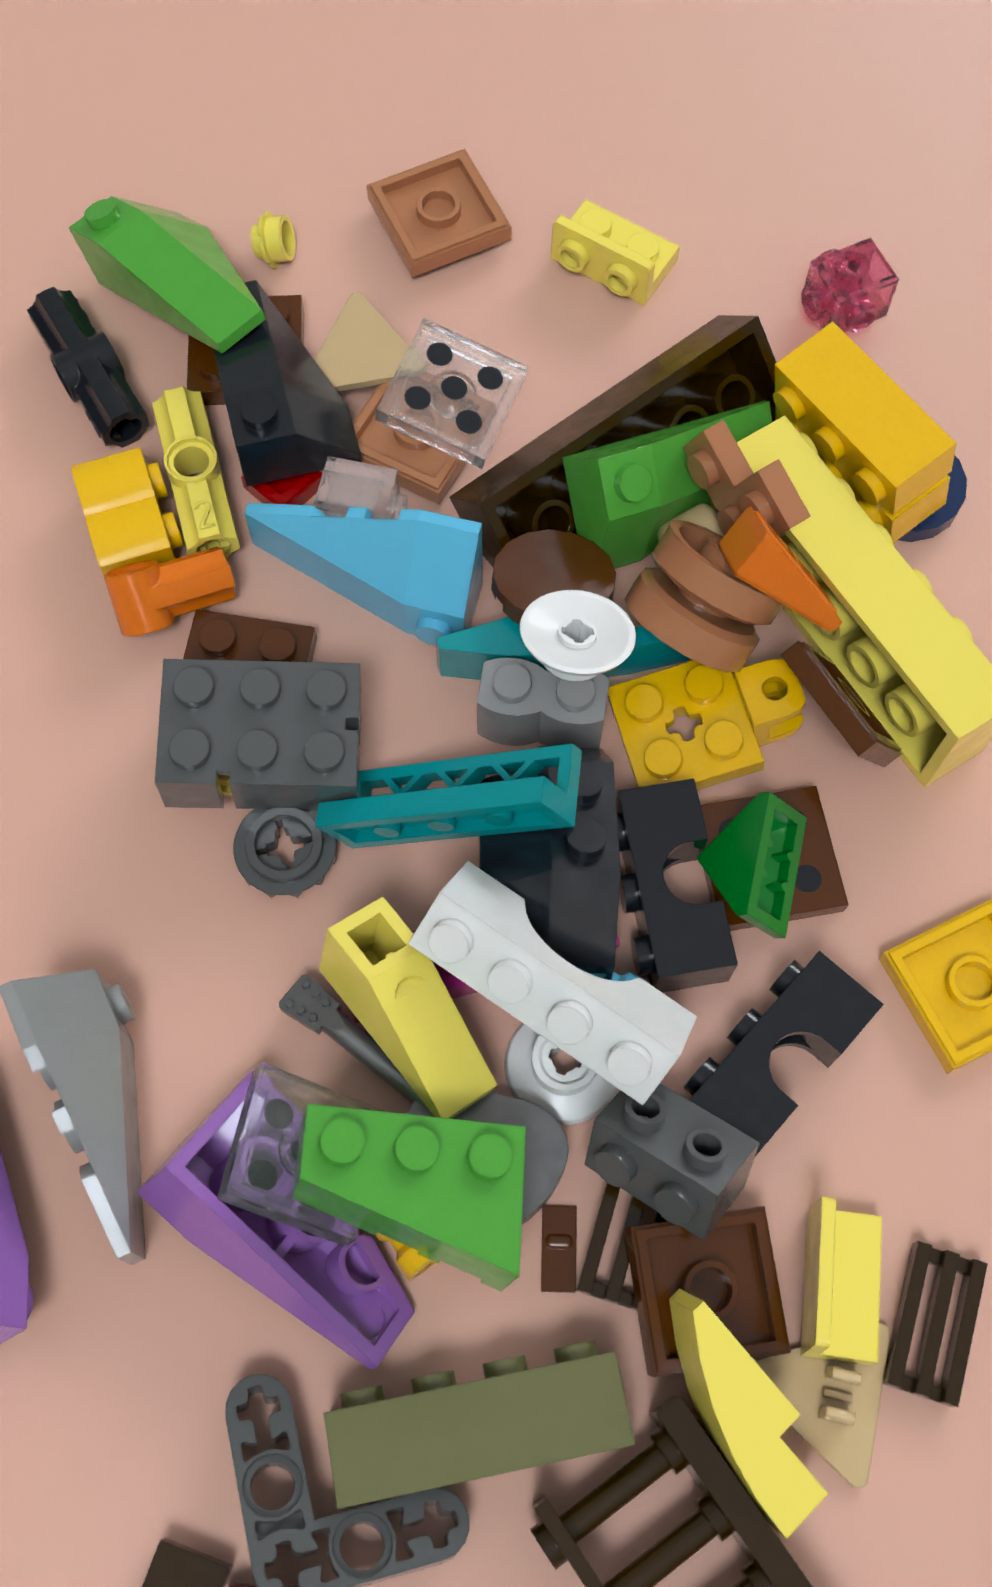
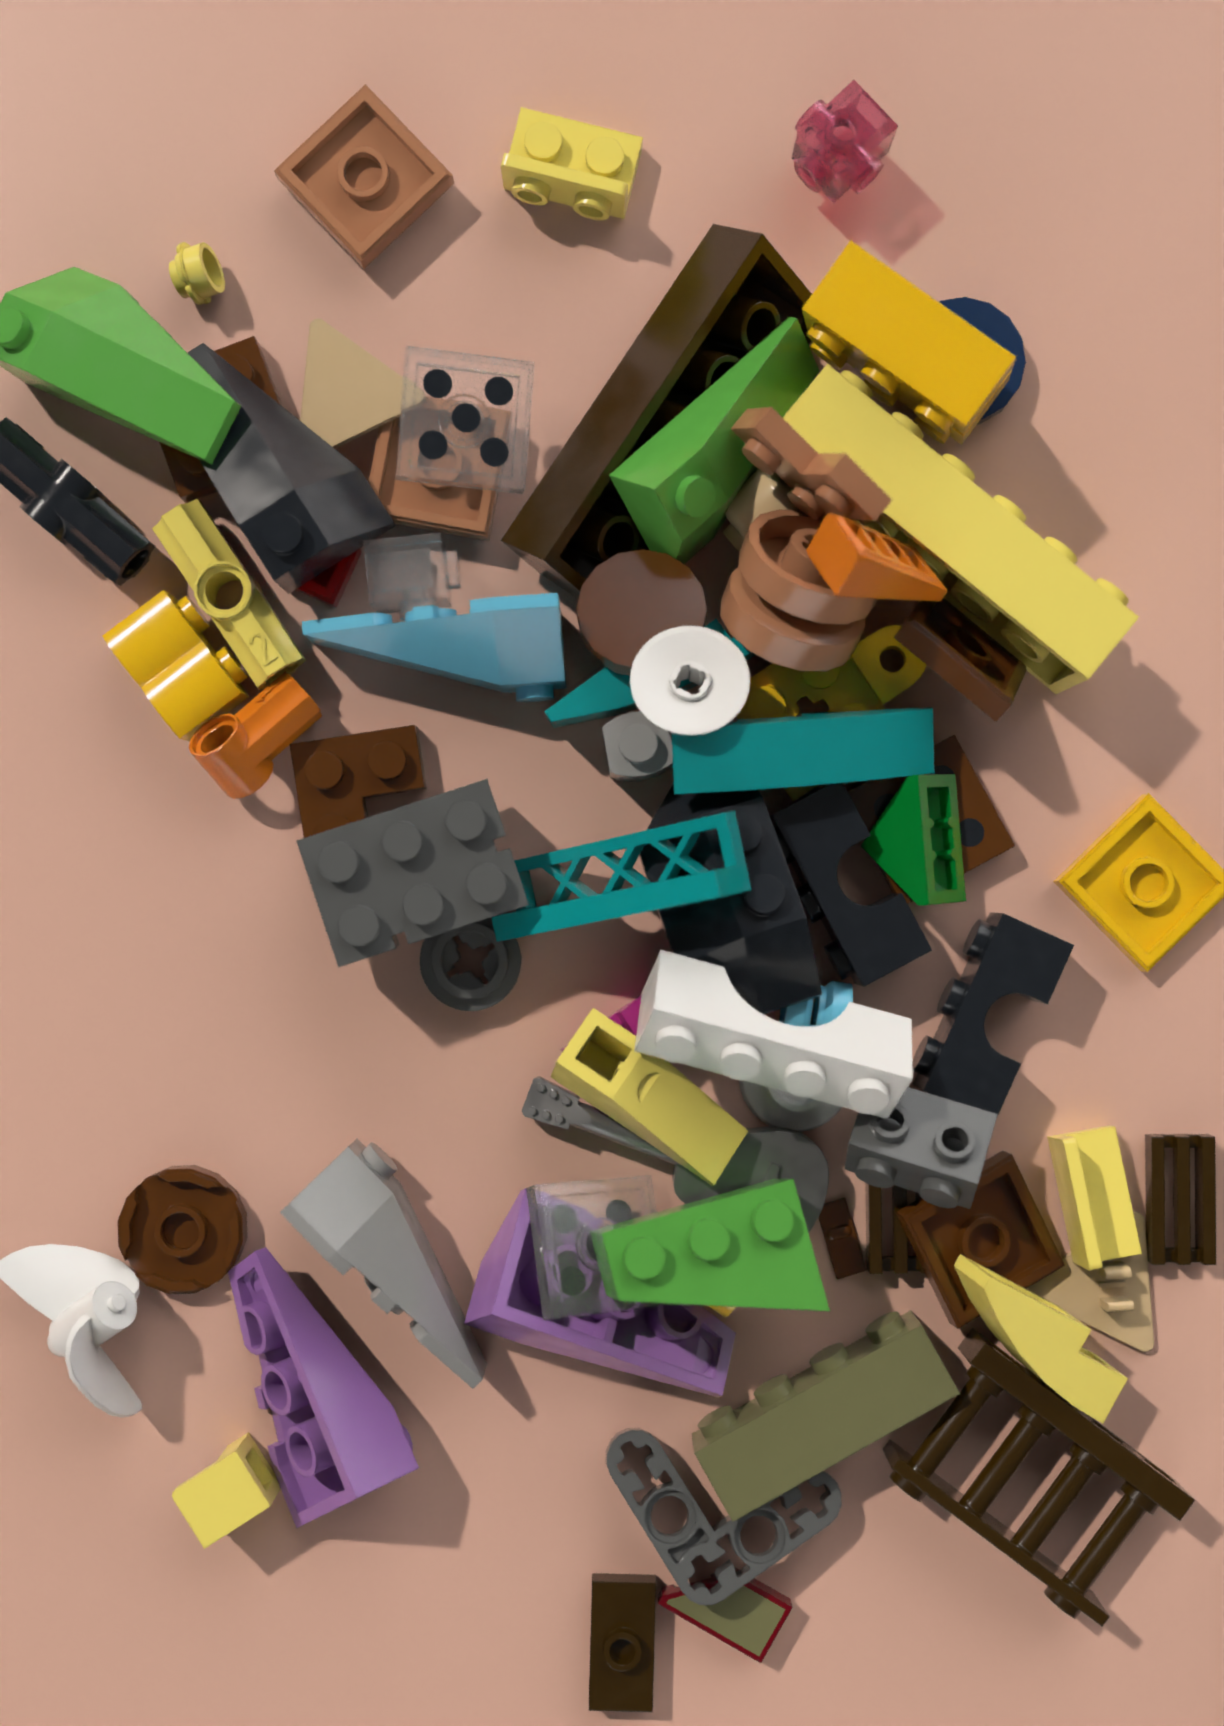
camera: 15 degrees left, 20 degrees up
(665, 734) = (805, 750): none -> teal slope

